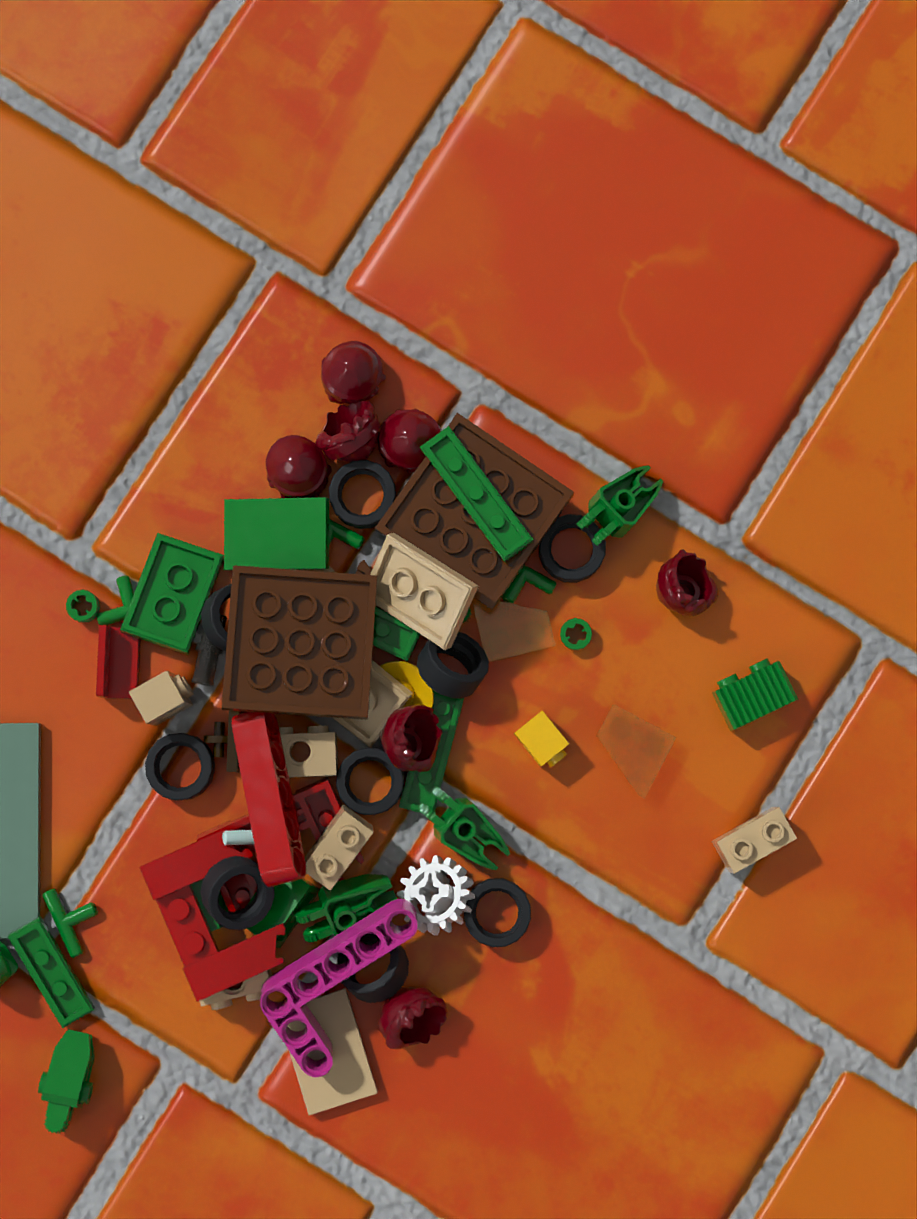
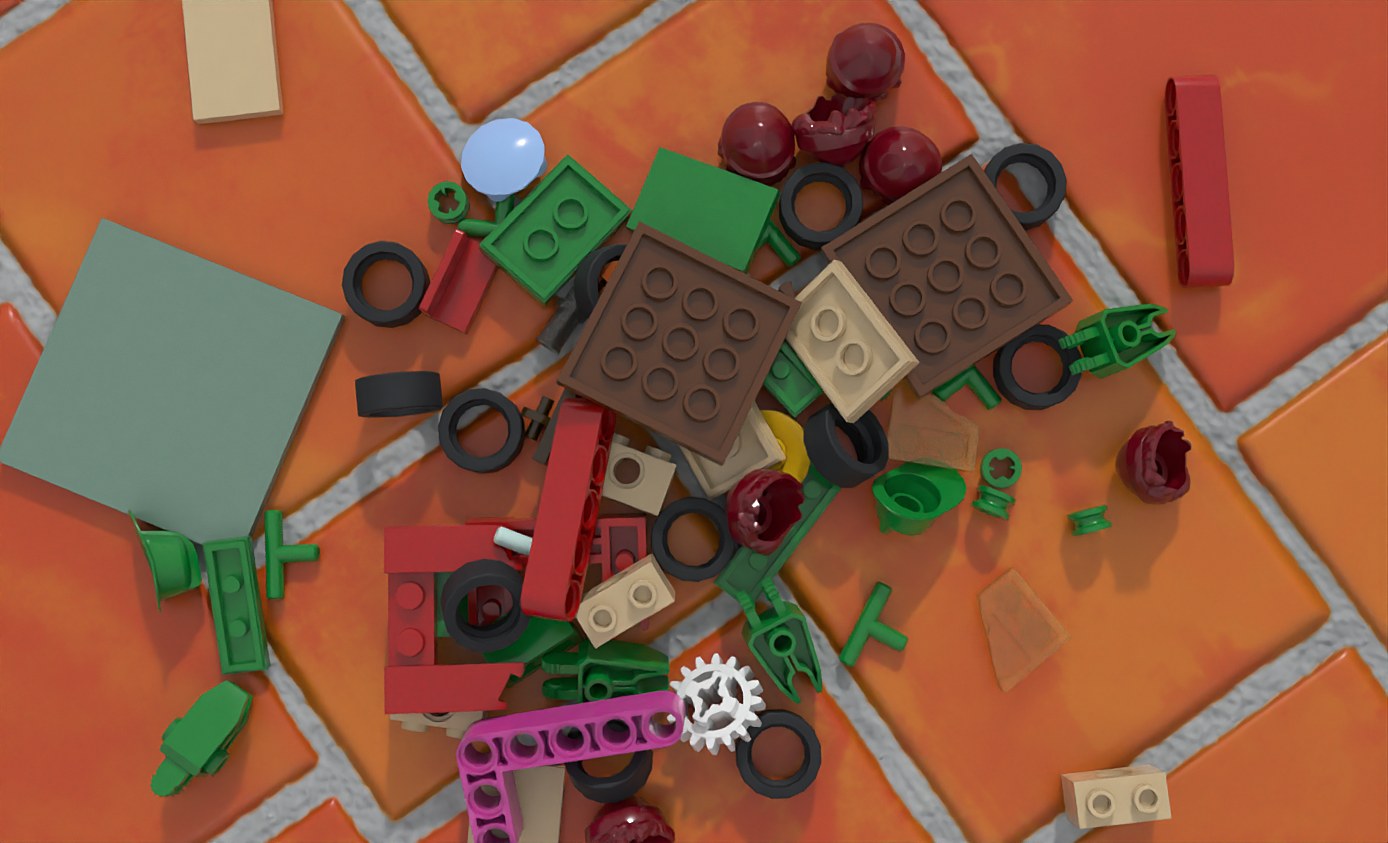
camera: 25 degrees right, 0 degrees up
(35, 683) = (362, 261): none -> black tyre
(107, 765) = (398, 394): none -> black tyre
(110, 555) = (503, 158): none -> light blue dish
(162, 697) = (493, 342): tan brick -> none
(476, 494) = (957, 256): green tile -> none
(518, 394) = (1048, 167): none -> black tyre
(519, 682) = (915, 496): none -> green piece
(526, 791) = (868, 626): none -> green piece
(542, 740) = (913, 575): yellow brick -> none
(580, 662) = (993, 502): none -> green bush
(635, 360) = (1199, 181): none -> red beam
(655, 646) = (1089, 520): none -> green bush
(754, 694) = (1183, 625): green brick -> none

